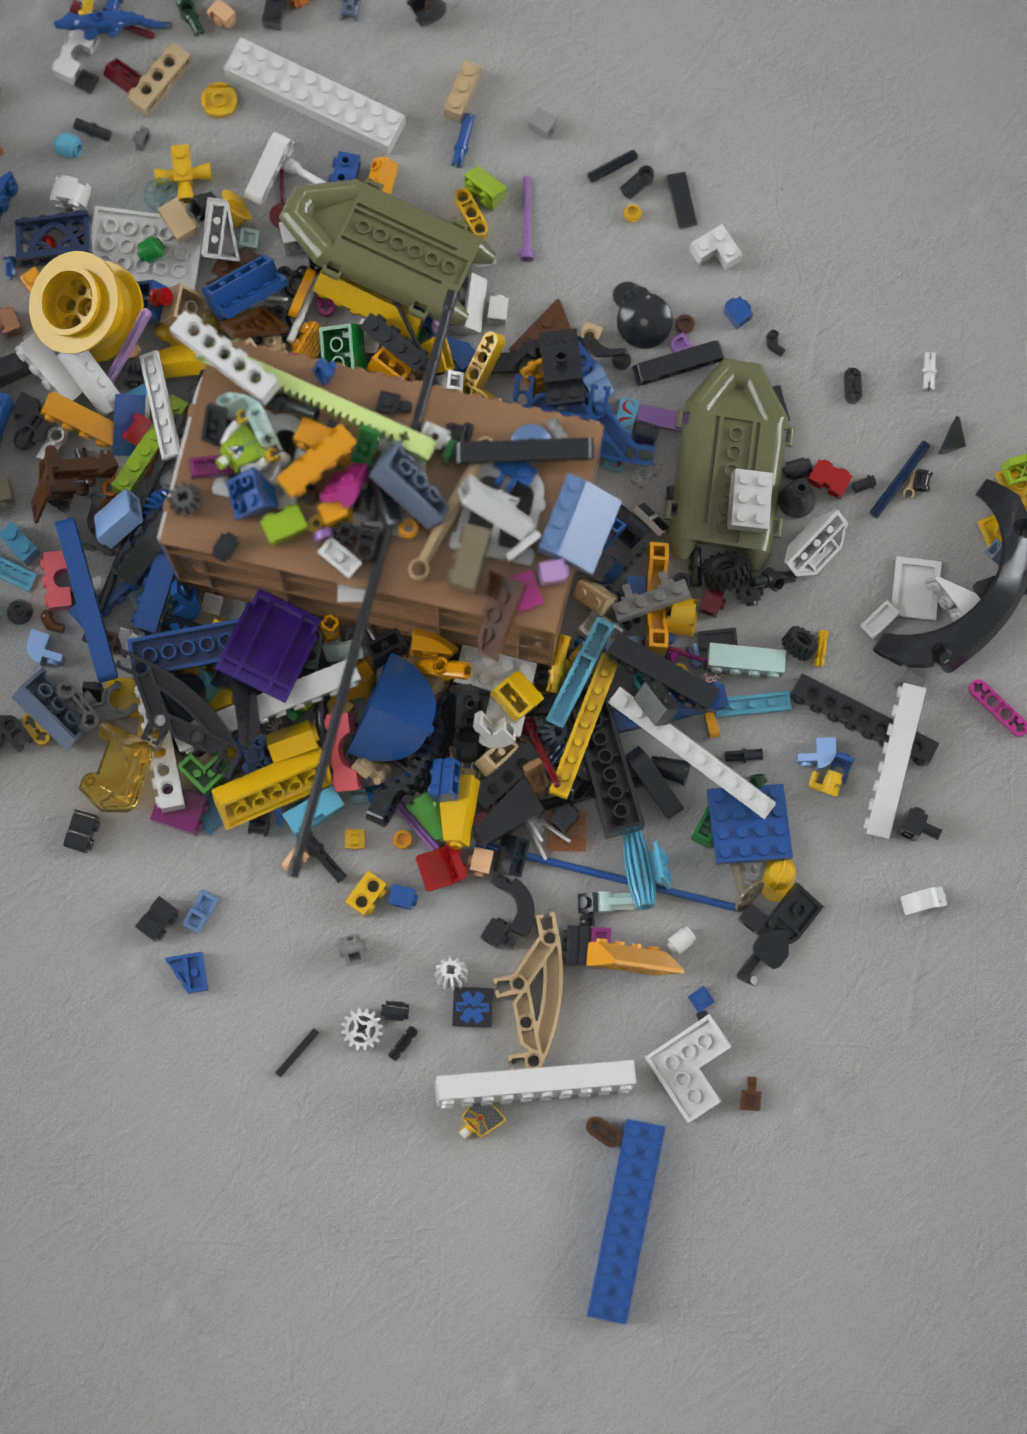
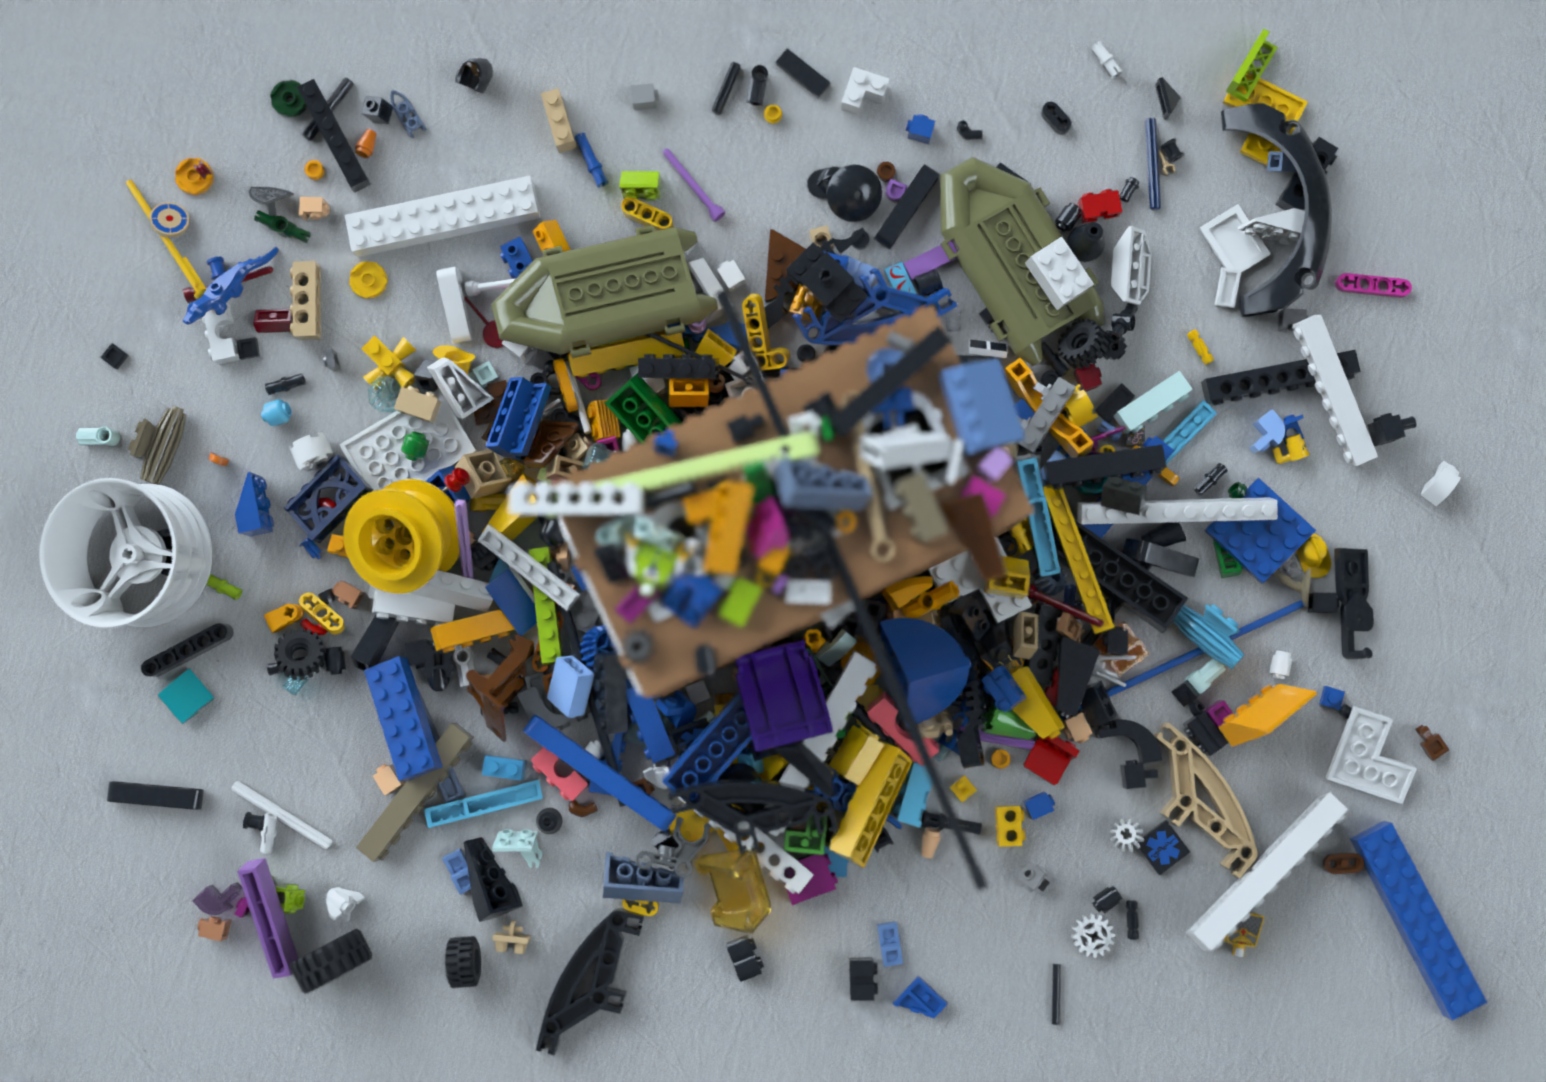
camera: 30 degrees left, 5 degrees up
(38, 649) = (590, 840): light blue brick -> none
(137, 429) = (524, 600): red piece -> none
(494, 734) = (1014, 620): white brick -> none
(799, 643) = (1184, 356): black tyre -> none

